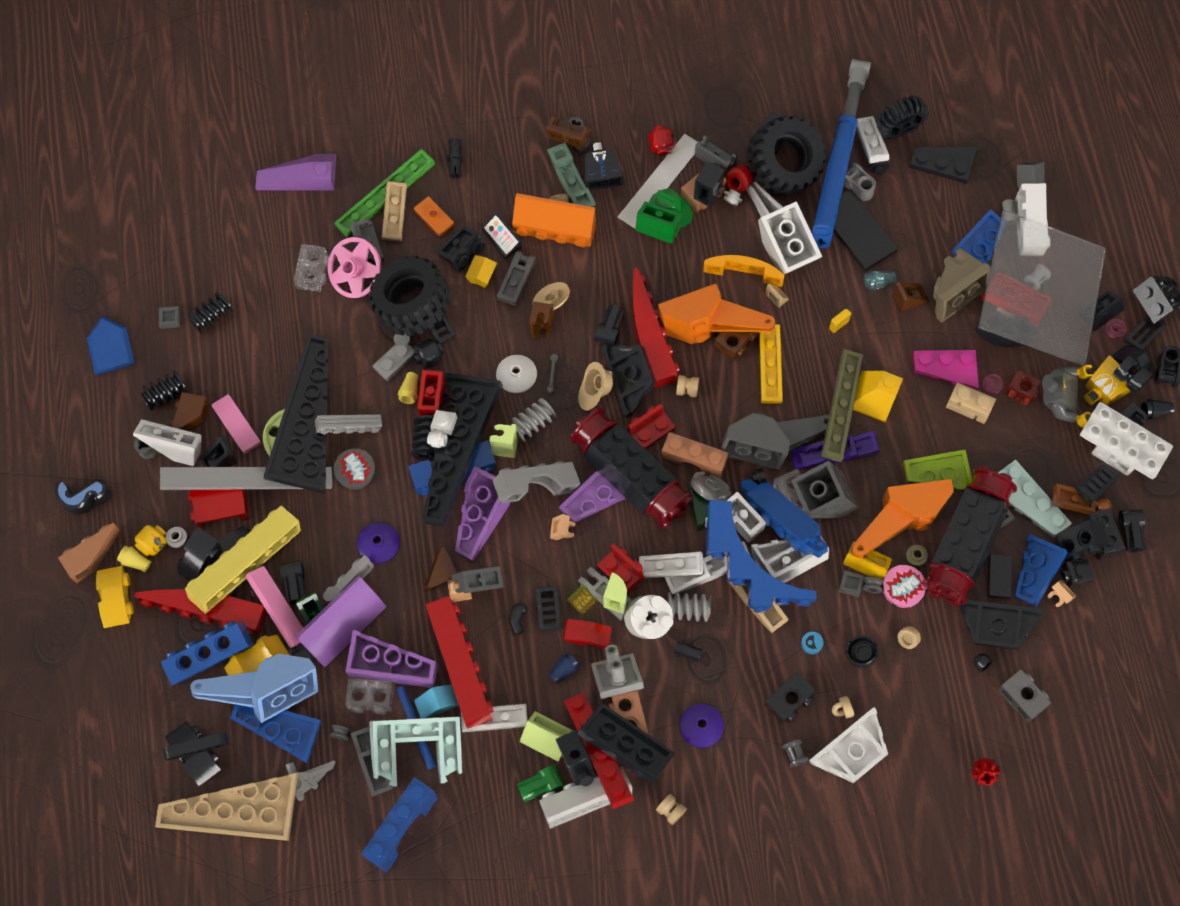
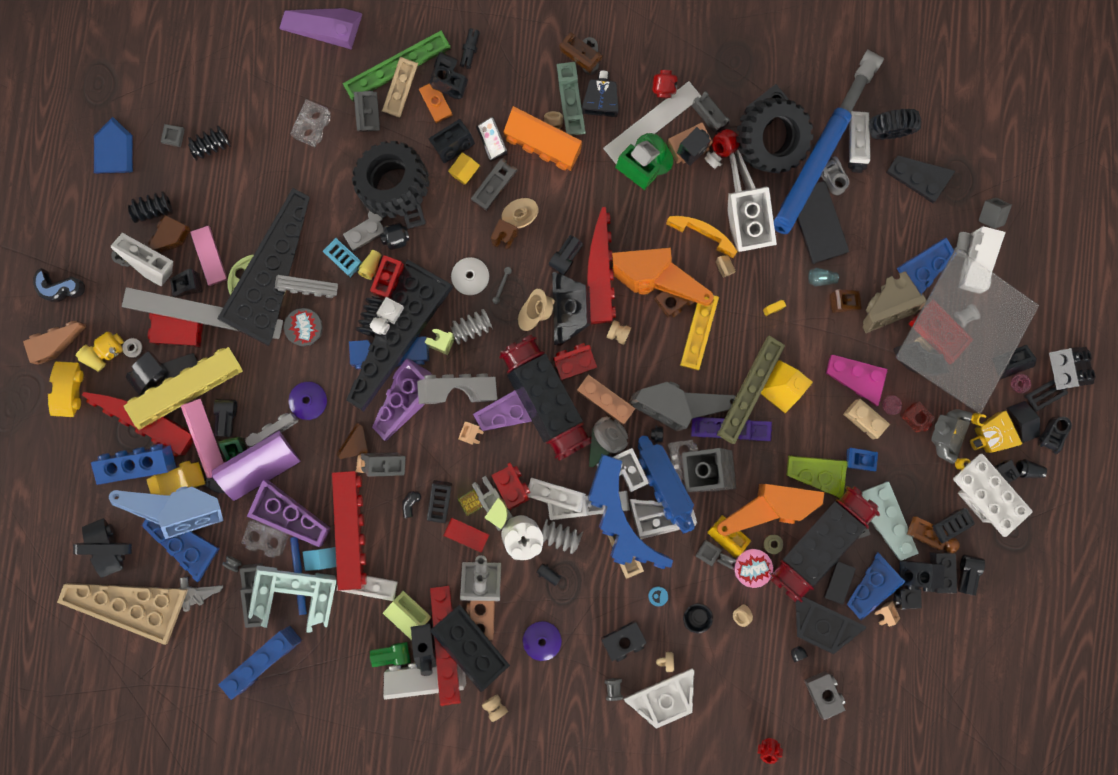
camera: 10 degrees right, 15 degrees up
(353, 267) = (348, 134): bright pink wheel -> none
(391, 397) = (353, 267): none -> medium azure slope
(439, 191) = (452, 82): none -> black piece
(565, 667) = (438, 560): dark blue cone -> none
(661, 205) = (645, 153): none -> light grey slope
(979, 443) = (861, 459): none -> blue slope
(1138, 379) = (1022, 444): black wheel -> none

